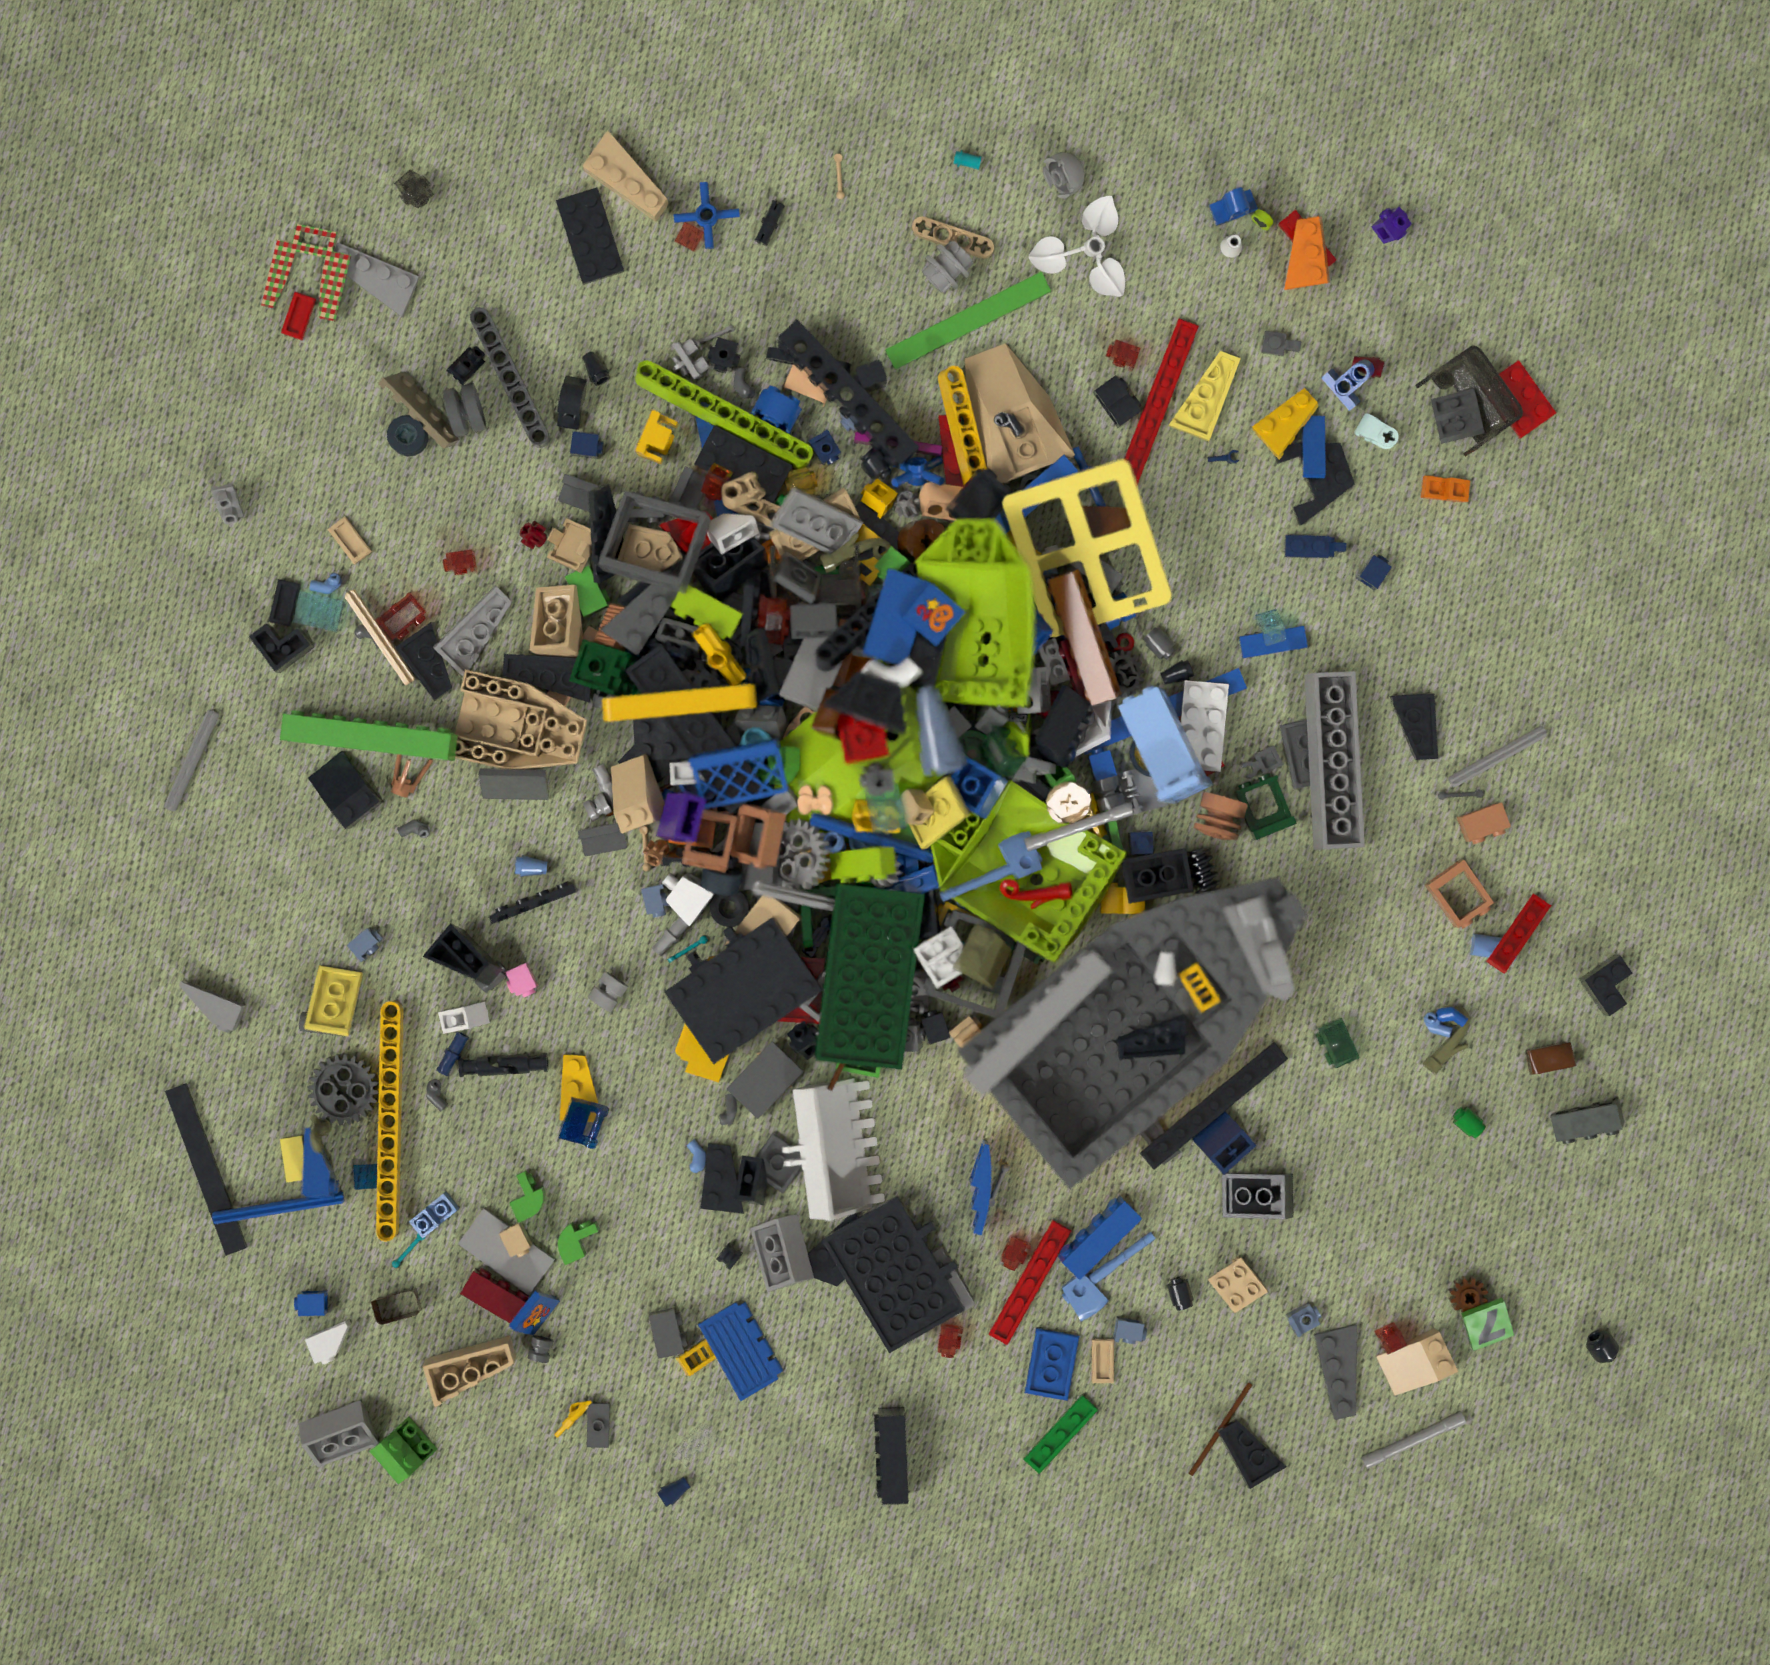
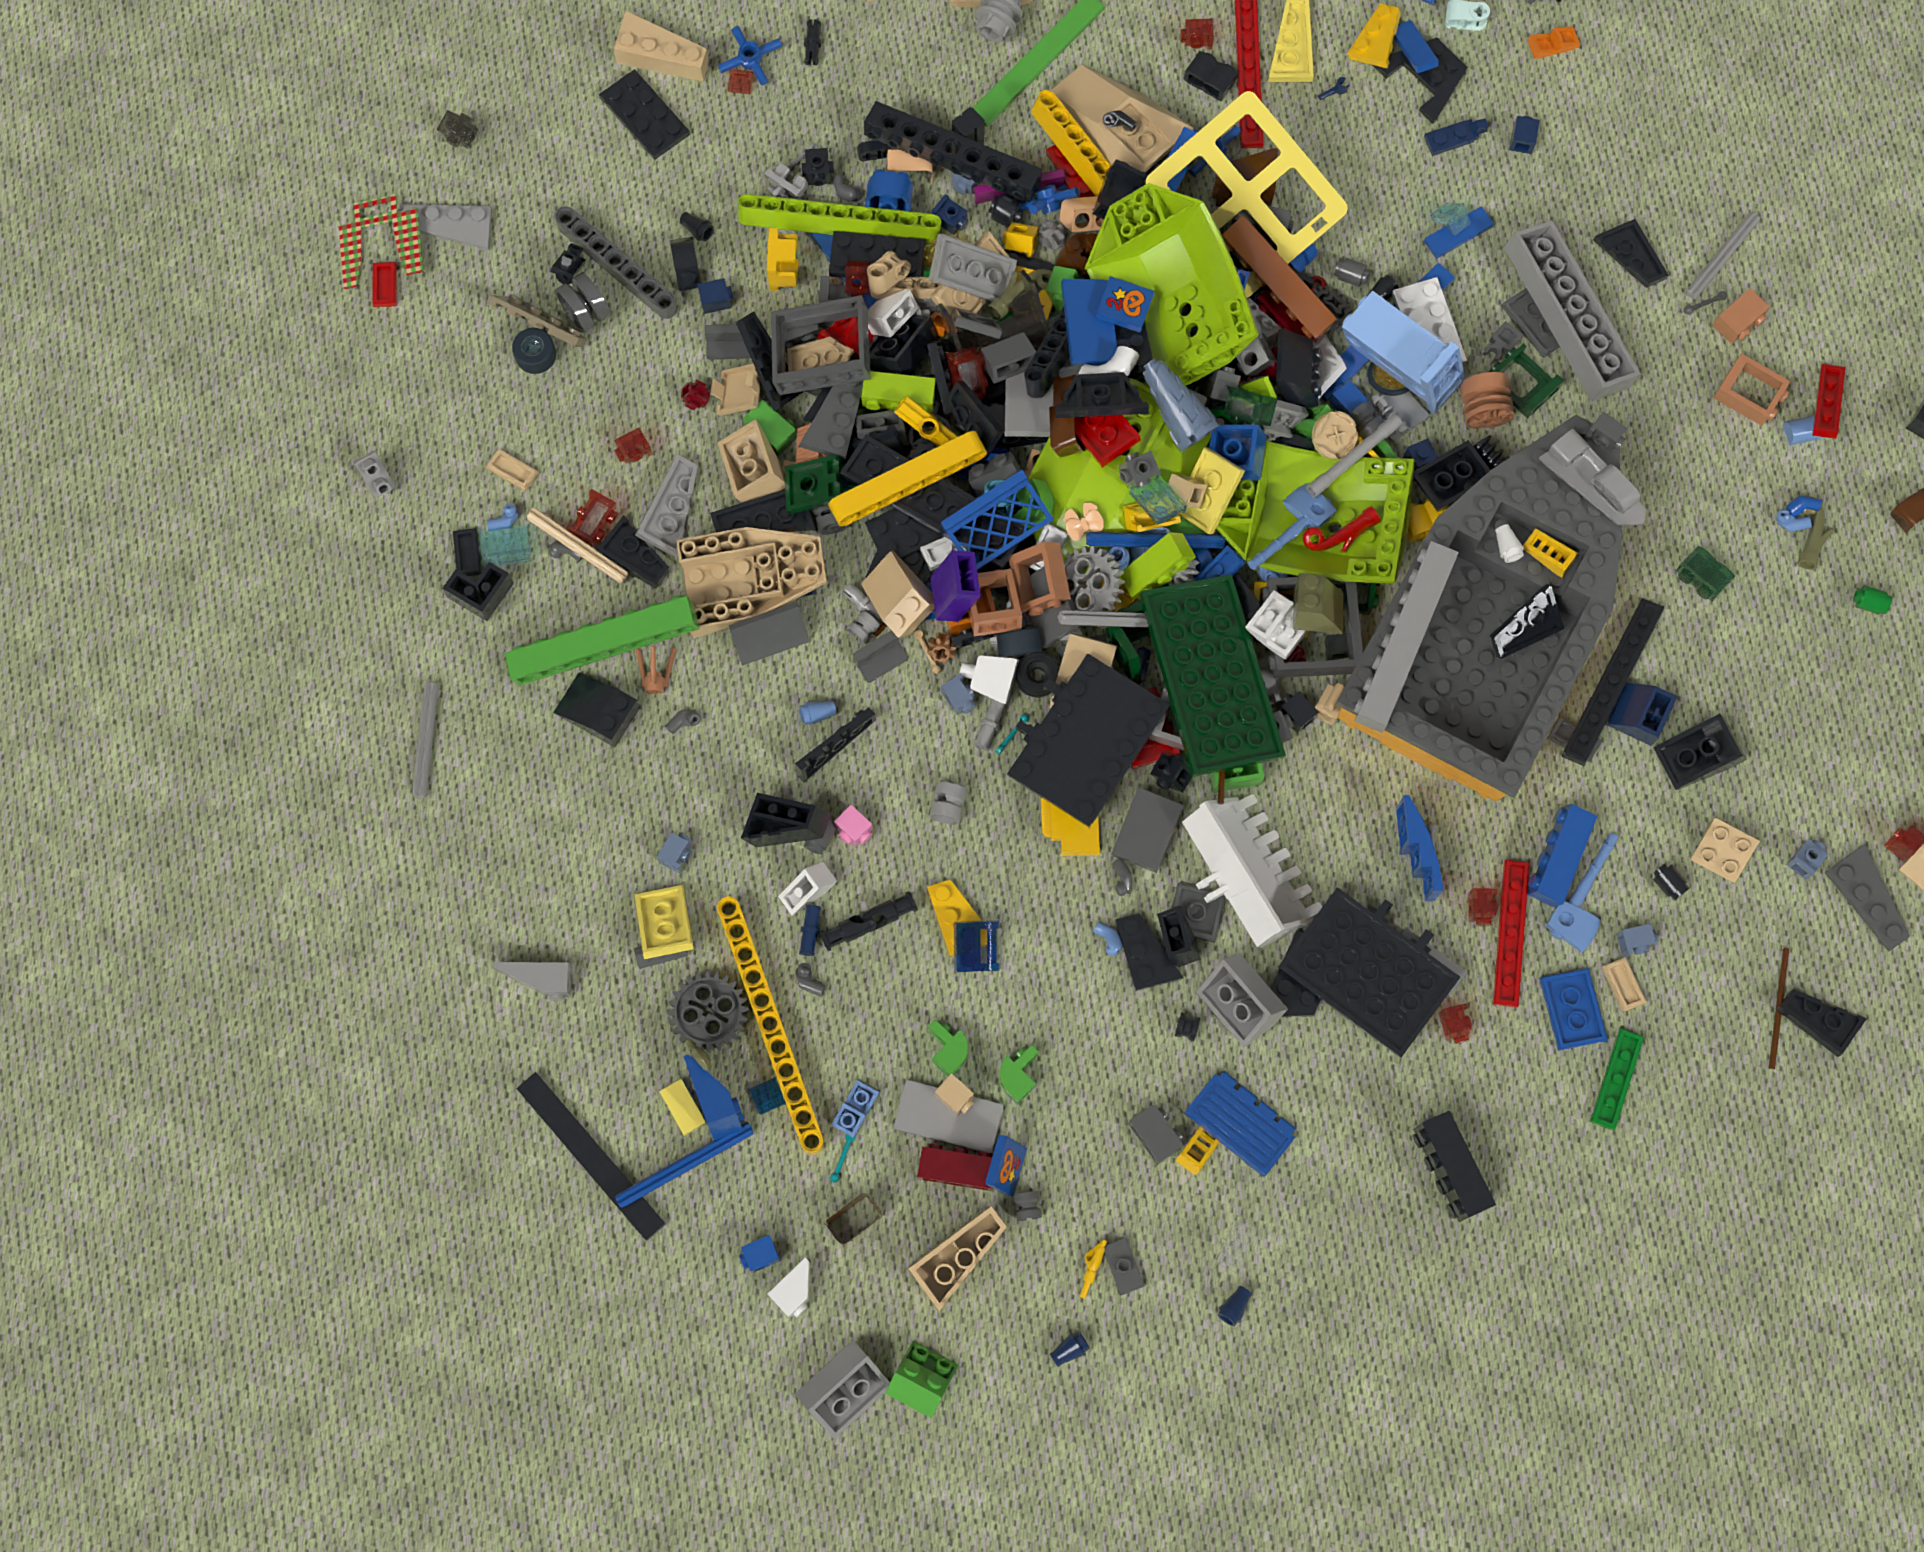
camera: 25 degrees left, 15 degrees down
(532, 1472) = (1070, 1349): none -> dark blue cone

